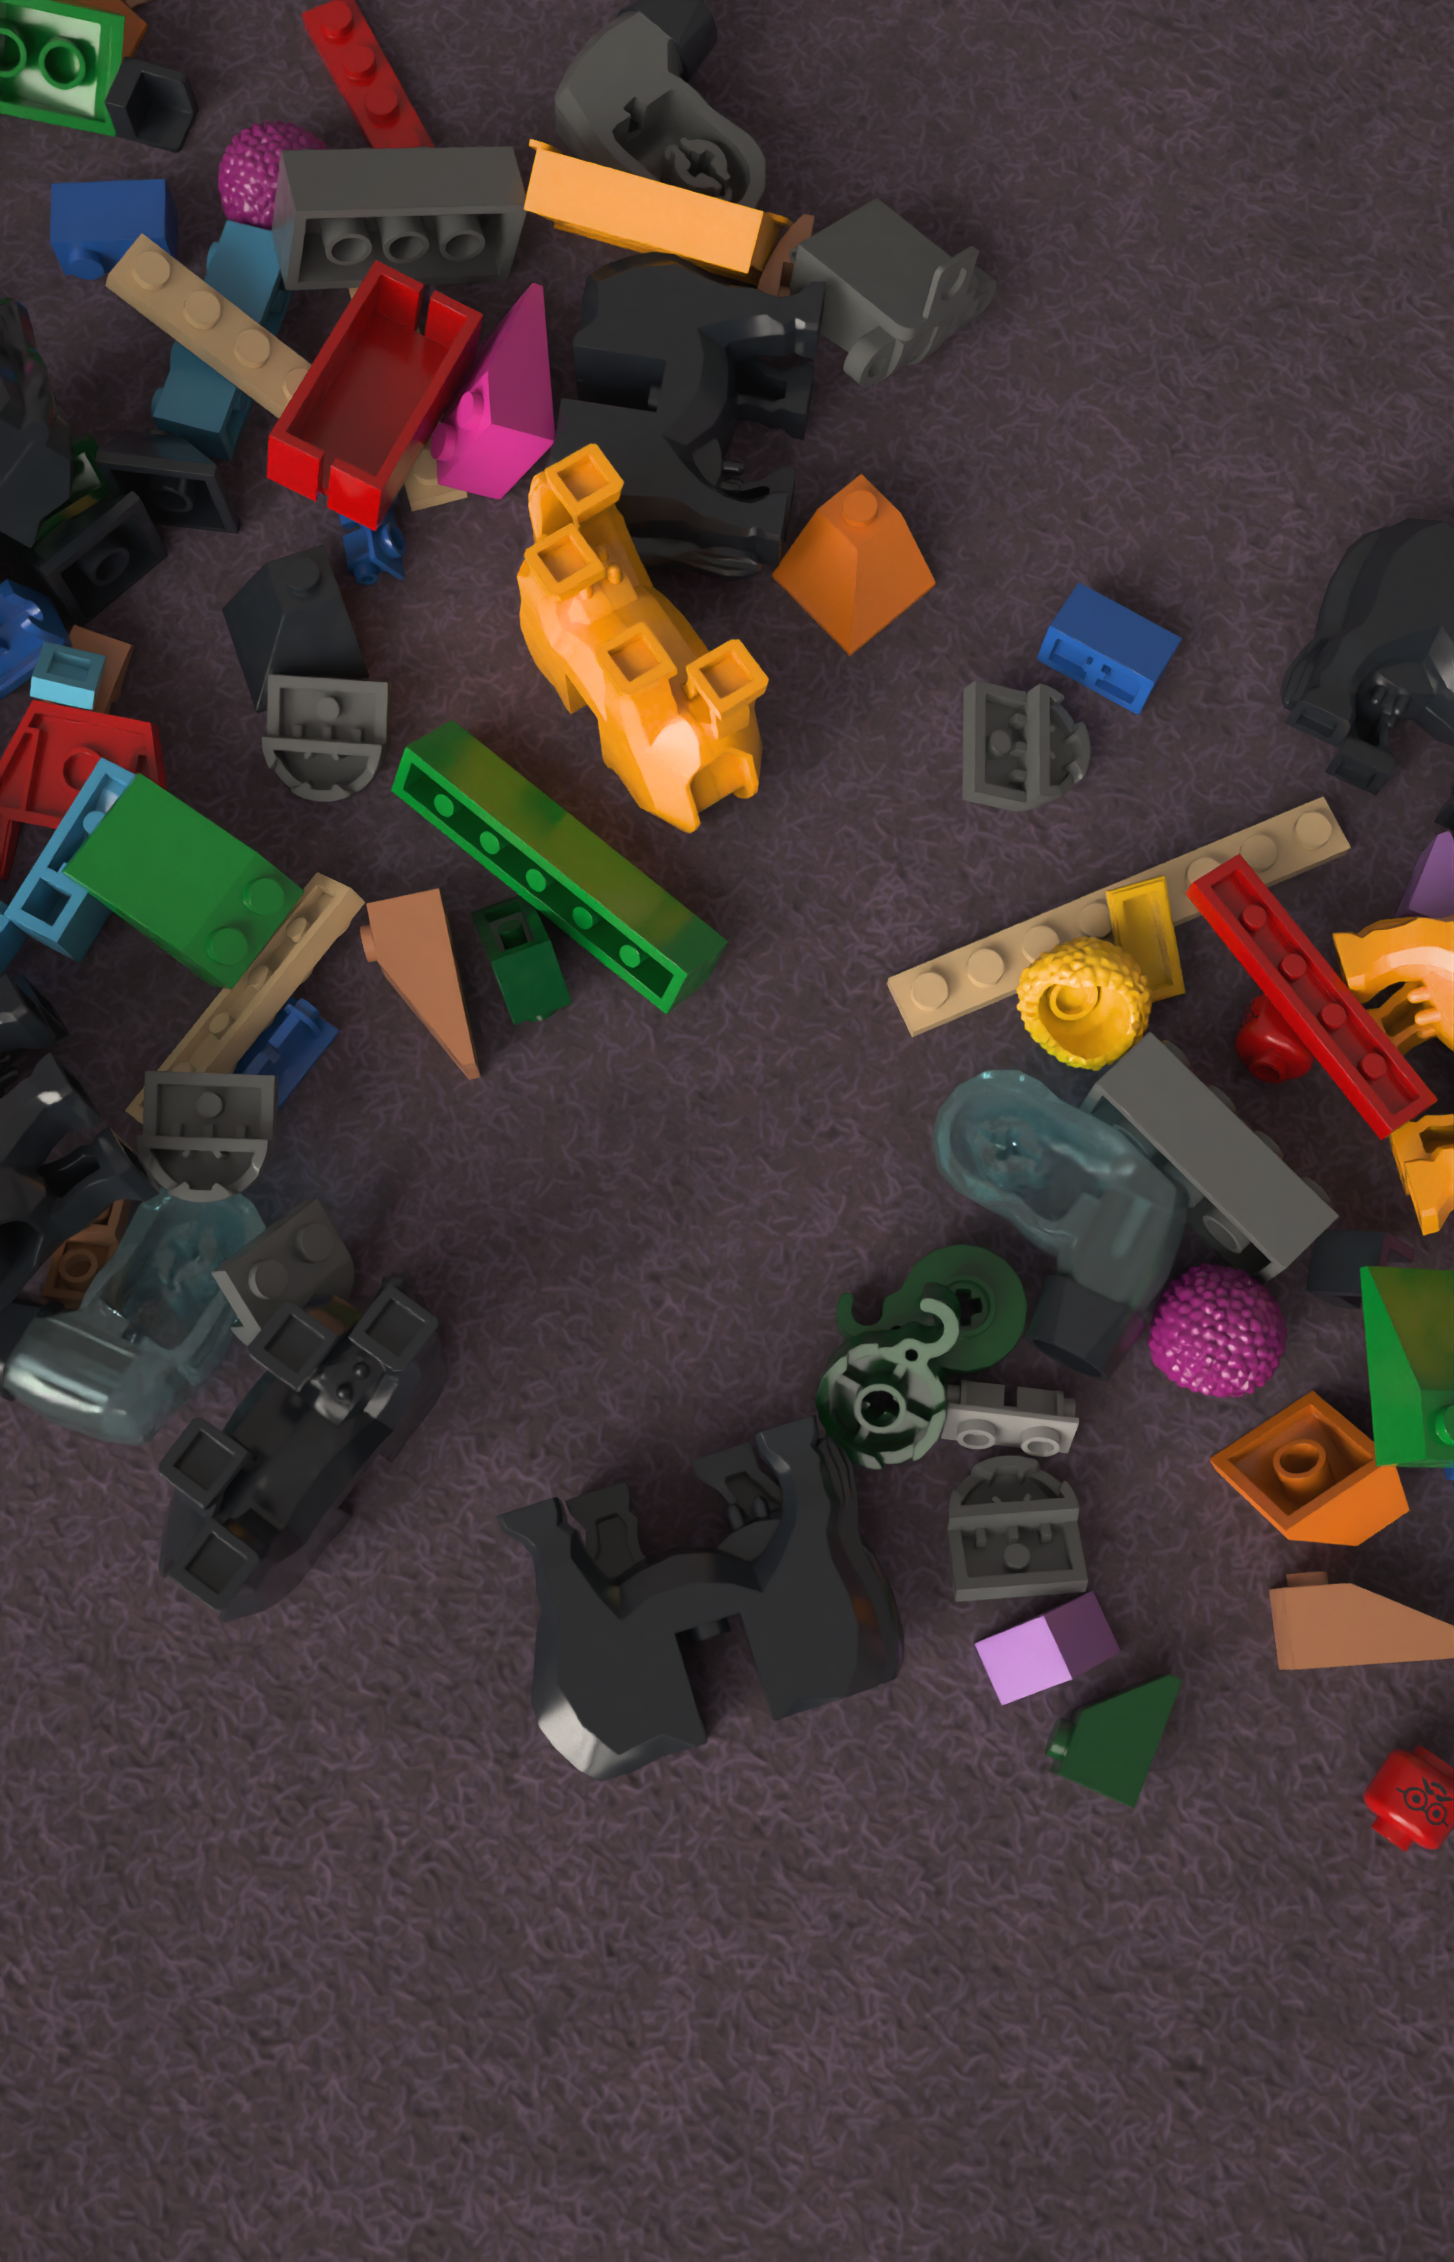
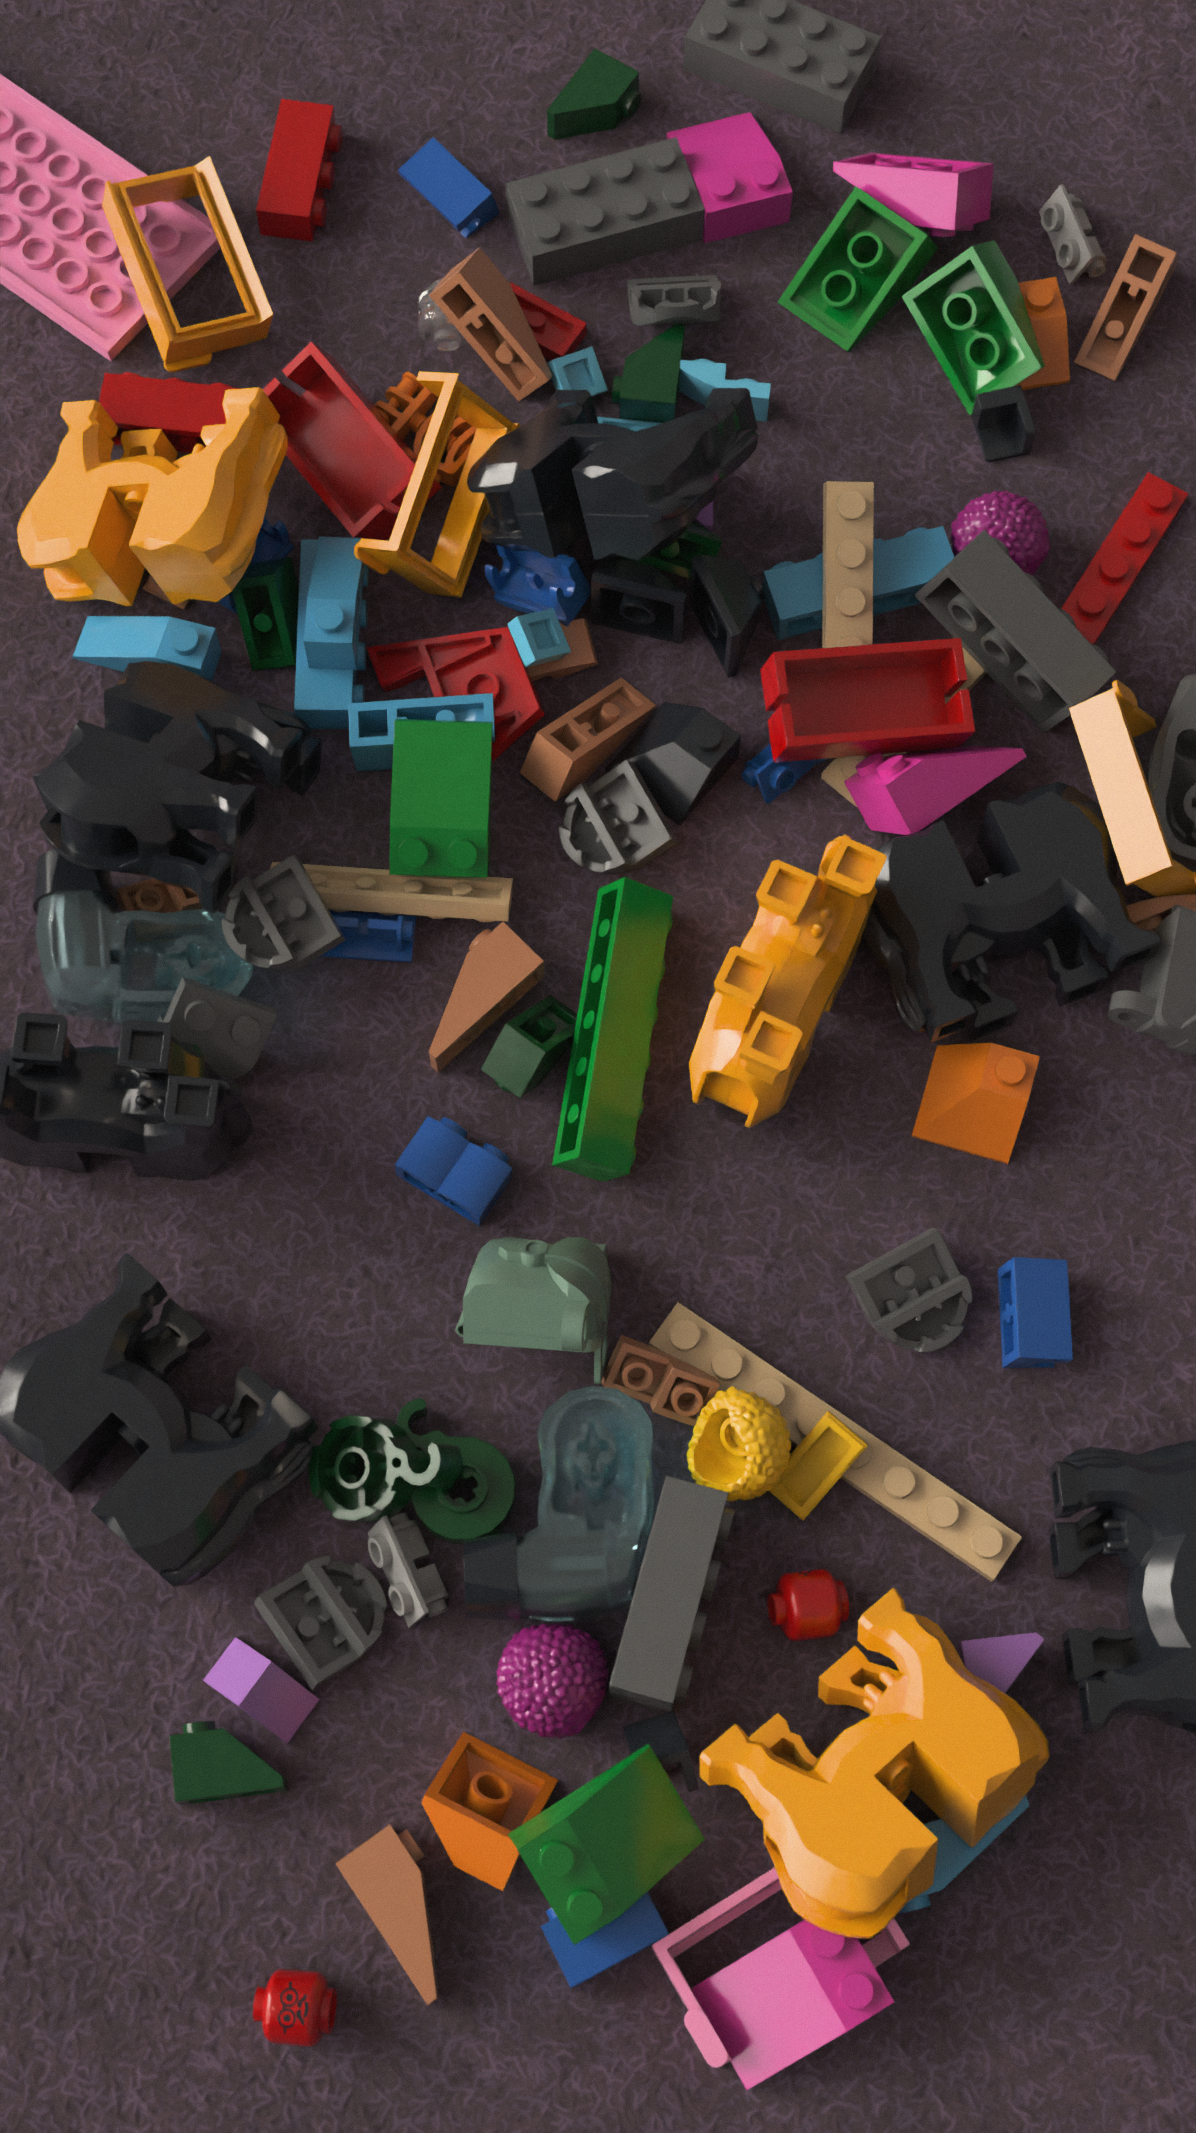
camera: 60 degrees right, 5 degrees down
(102, 219) = (893, 458): blue brick -> none
(210, 708) = (584, 738): none -> nougat slope
(605, 1117) = (454, 1169): none -> blue brick
(811, 1108) = (540, 1297): none -> sand green piece
(961, 1042) = (659, 1379): none -> nougat slope
(1311, 996) = (836, 1600): red plate -> none

